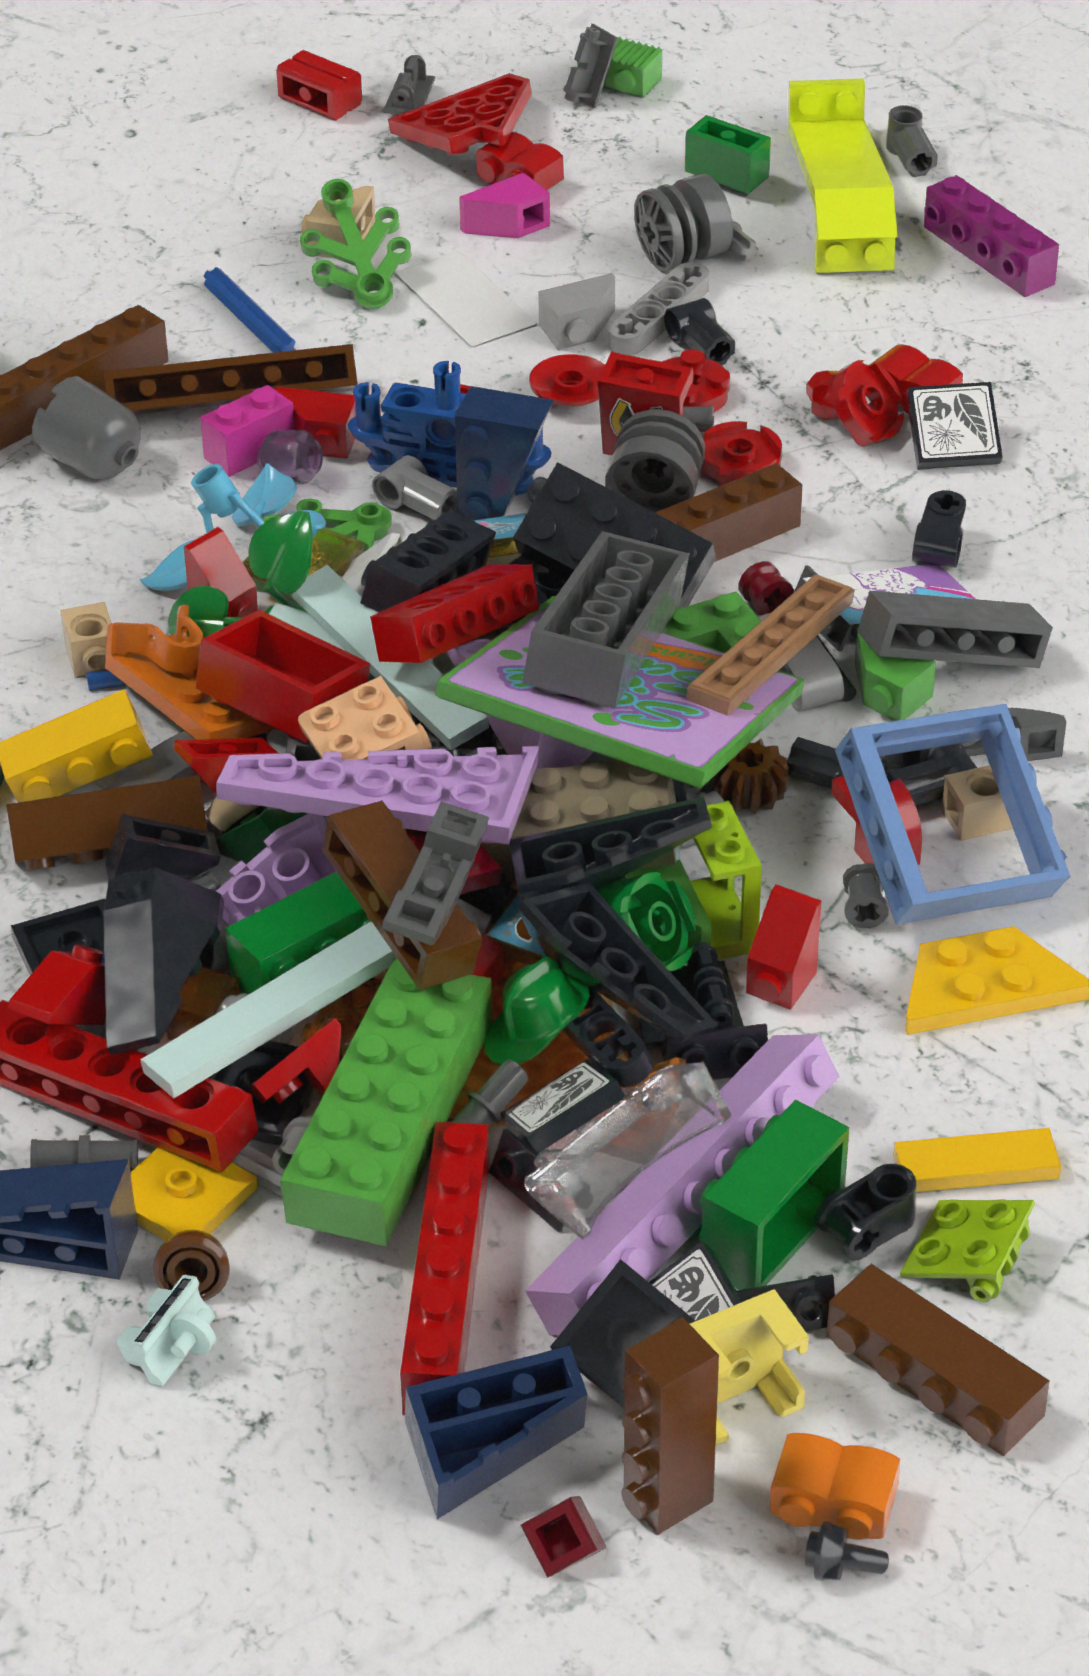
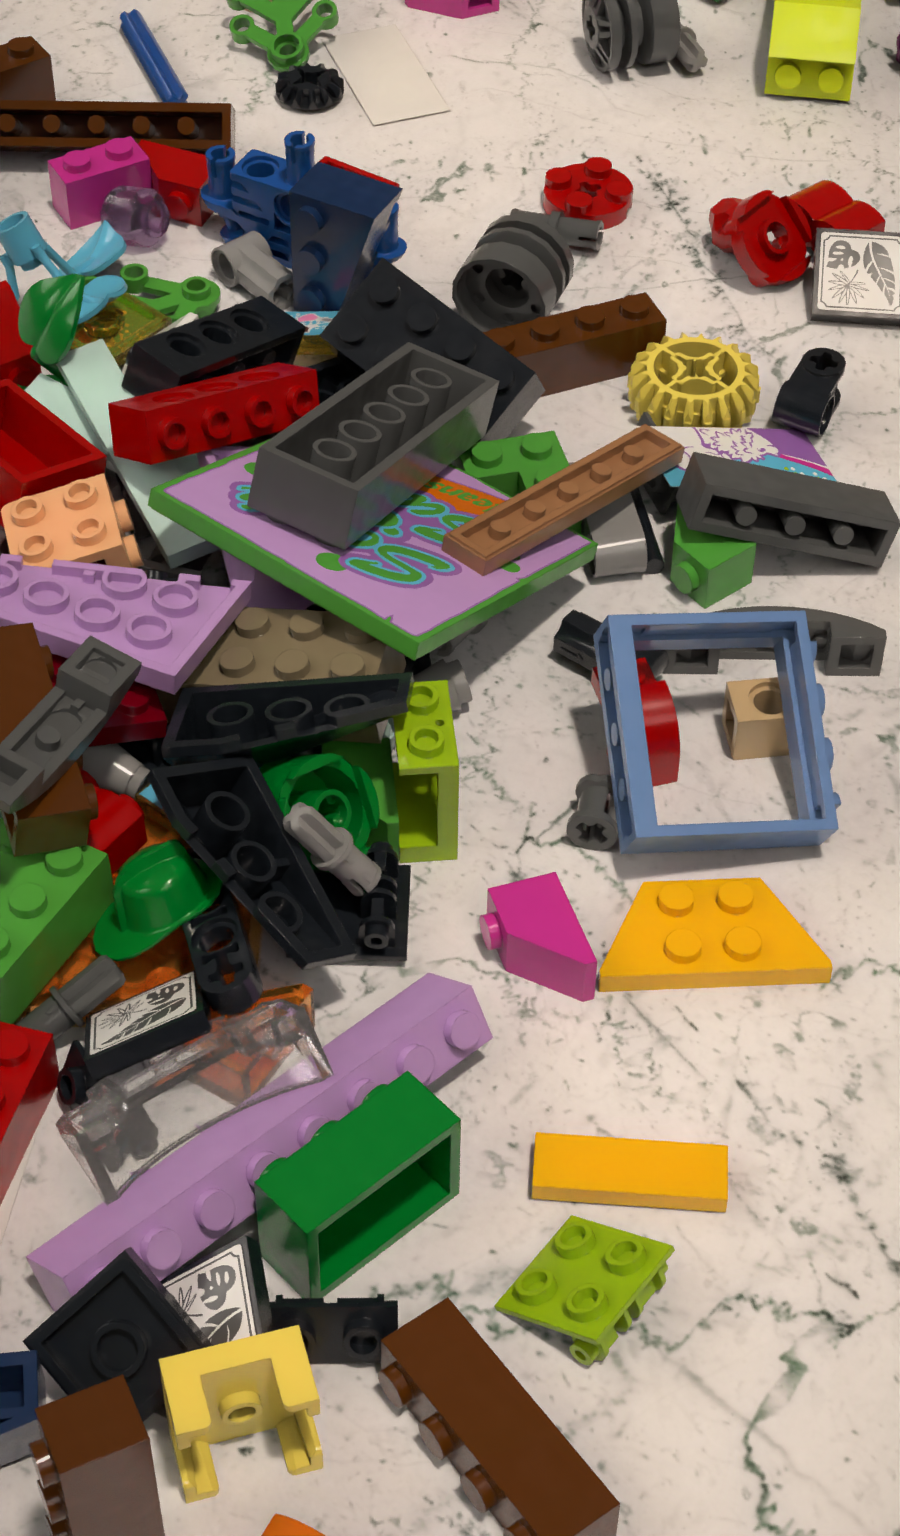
camera: 10 degrees right, 5 degrees up
(402, 319) = (309, 87): none -> black gear
(567, 379) = (460, 173): red dish -> none
(577, 310) = (494, 100): light grey slope -> none
(637, 385) = (510, 185): red panel -> none
(654, 305) = (550, 130): light grey beam -> none
(672, 948) = (332, 849): none -> light grey axle
(698, 327) = (615, 134): black piece -> none
(720, 1051) = (362, 982): black hinge -> none
(753, 448) = (637, 273): red plate -> none
(753, 778) = (509, 648): reddish brown gear -> none
(764, 587) = (593, 426): dark red wheel -> none
(784, 948) = (474, 856): red slope -> none
(837, 536) = (694, 383): none -> light yellow gear
(852, 997) = (540, 936): none -> dark pink slope
(870, 1210) = (472, 1221): black piece -> none
(927, 778) = (704, 683): black piece -> none

